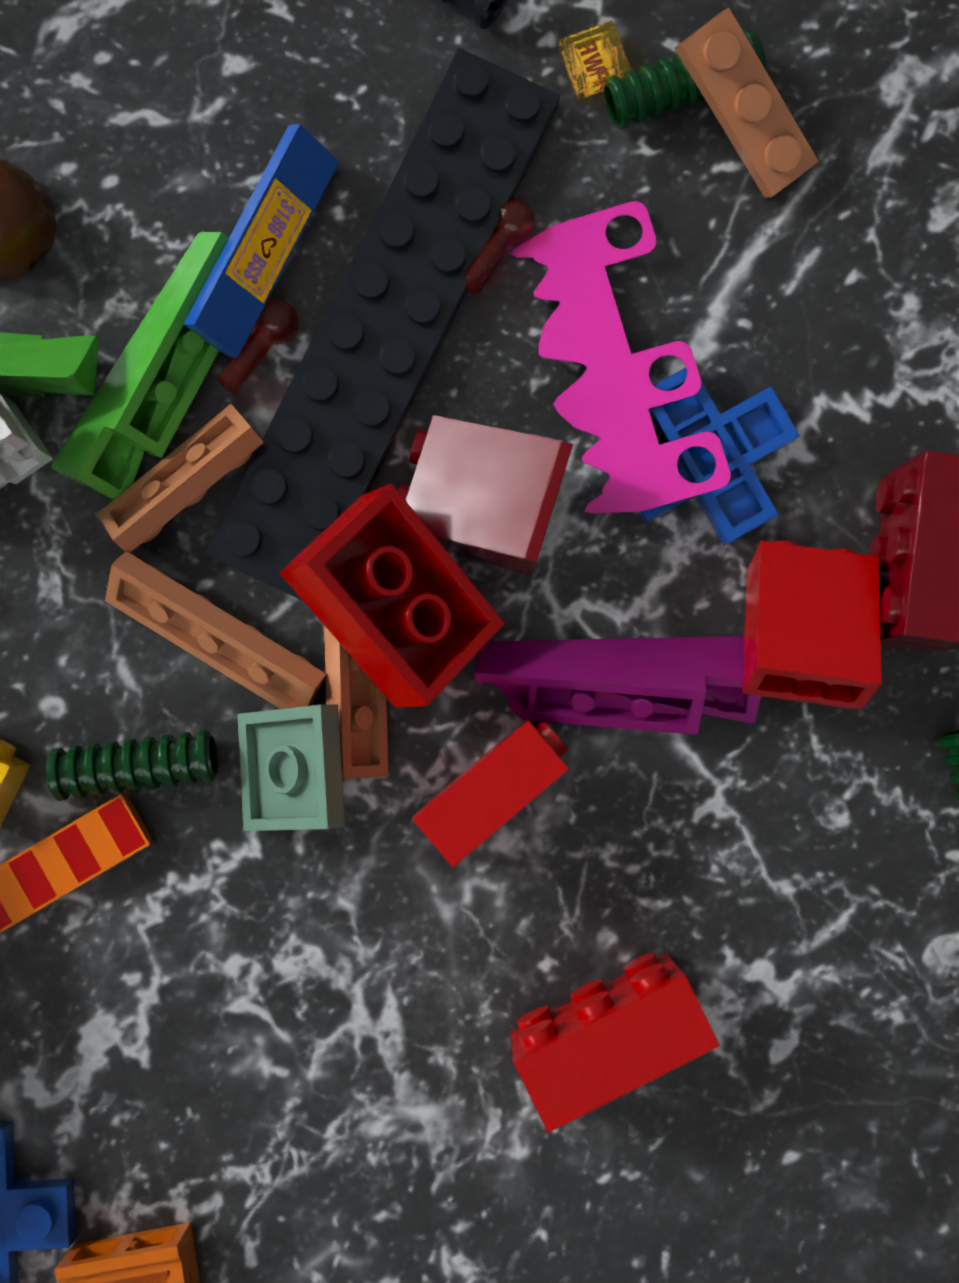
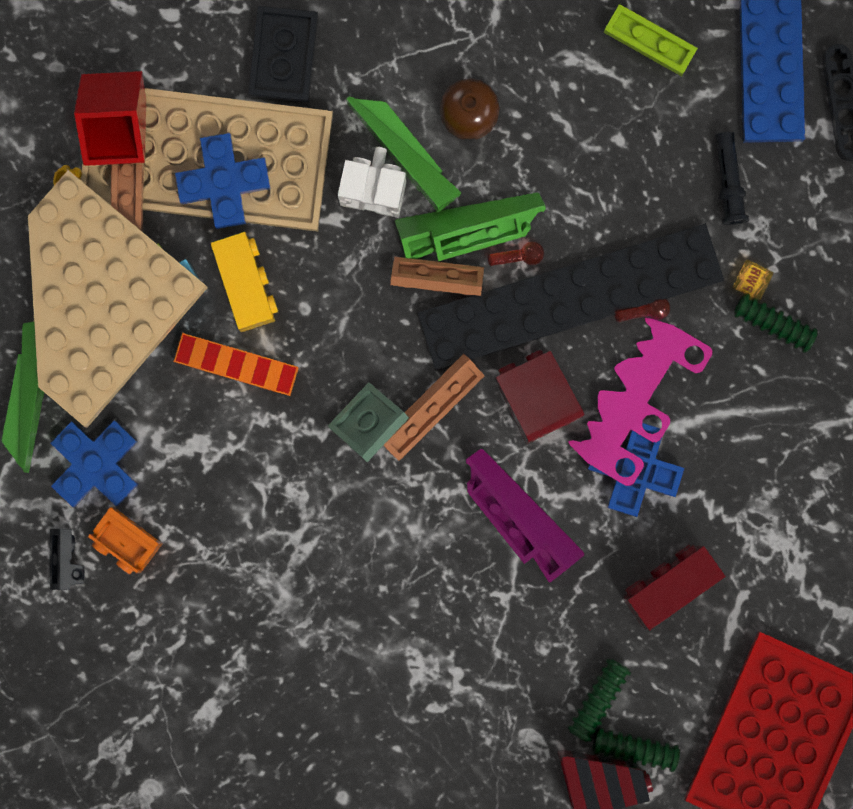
camera: 50 degrees right, 0 degrees up
(131, 765) = (313, 361): dark green piece -> none
(212, 634) = (389, 344): nougat plate -> none
(262, 241) = (557, 221): blue tile -> none
(393, 598) = (467, 401): red brick -> none
(492, 790) = (431, 503): red brick -> none
(609, 1039) = (380, 631): red brick -> none
(746, 103) = (785, 357): nougat plate -> none
(812, 625) = (604, 566): red brick -> none

